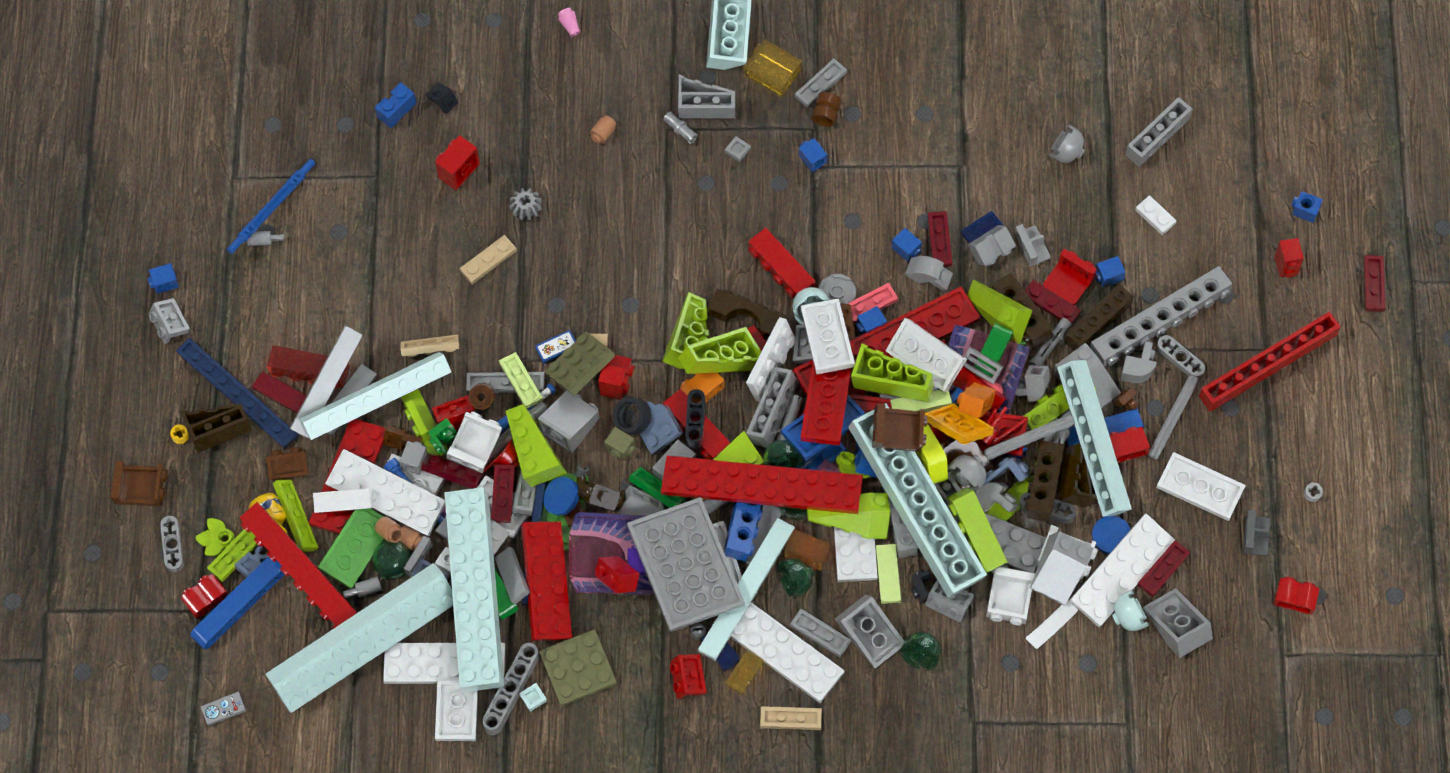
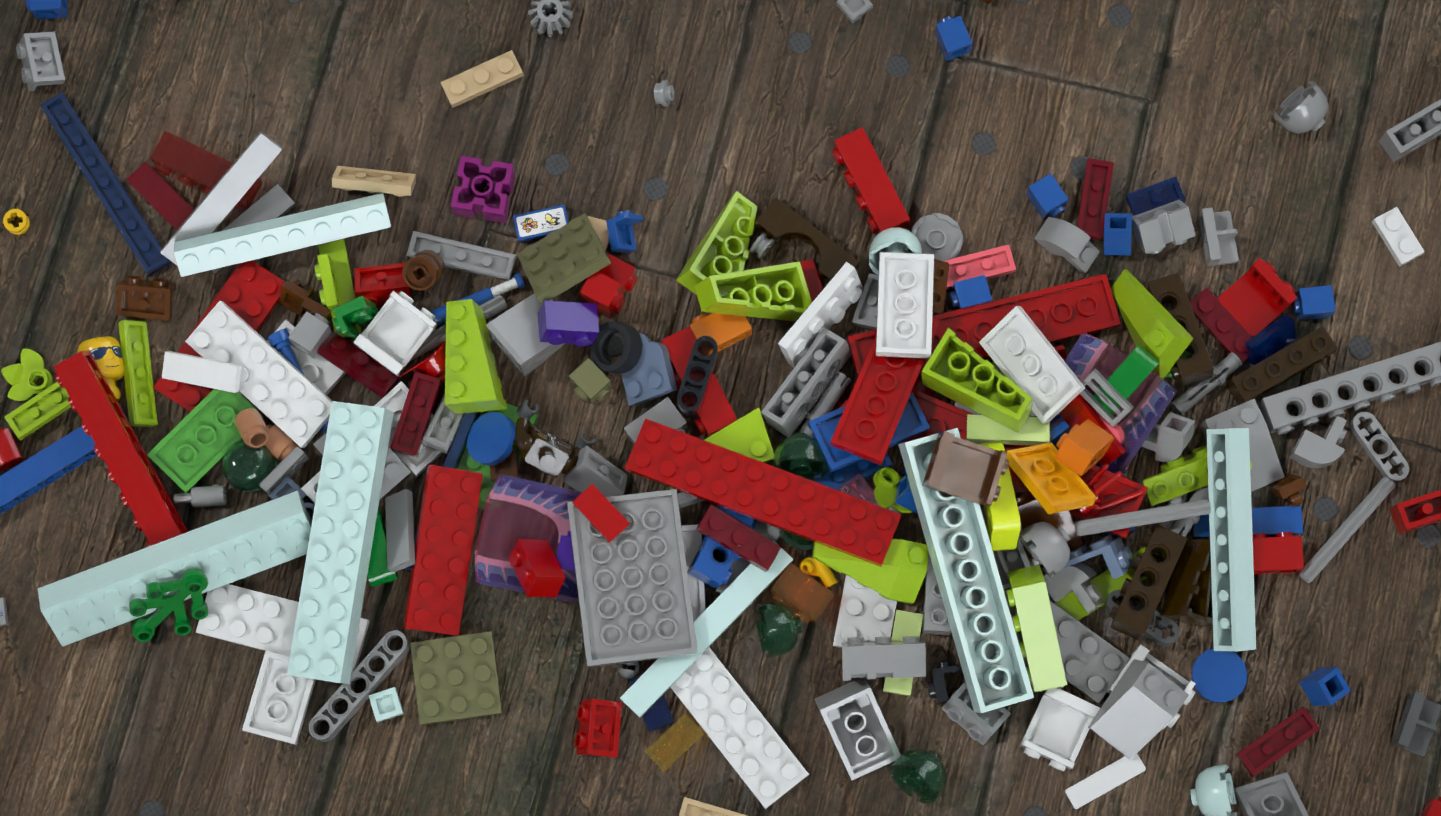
camera: 15 degrees right, 10 degrees up
(216, 425) = (63, 224): dark brown wedge -> none
(250, 562) = (61, 424): sand blue plate -> none
(345, 686) = (192, 582): none -> green plant
(500, 327) = (476, 176): none -> magenta brick
(520, 380) = (481, 260): yellowish green tile -> none
(595, 404) = (568, 323): none -> dark purple brick
(614, 337) = (621, 231): none -> blue bracket
(620, 238) = (663, 93): none -> light grey plate
(653, 486) = (618, 450): green tile -> none
(653, 524) = (601, 513): none -> red tile
(716, 324) = (762, 245): none -> light grey bush
(753, 520) = (738, 538): none -> dark red plate
(815, 531) = (816, 568): none -> yellow arm
(820, 632) = (790, 712): light grey tile -> none
(875, 577) = (883, 658): none -> light grey wedge
(962, 257) = (1117, 234): none -> blue brick
(1086, 302) = (1271, 340): none -> clear blue plate
(1122, 569) = (1220, 729): white plate -> none
(1185, 522) = (1325, 686): none -> blue brick
(1200, 486) = (1359, 638): white plate -> none

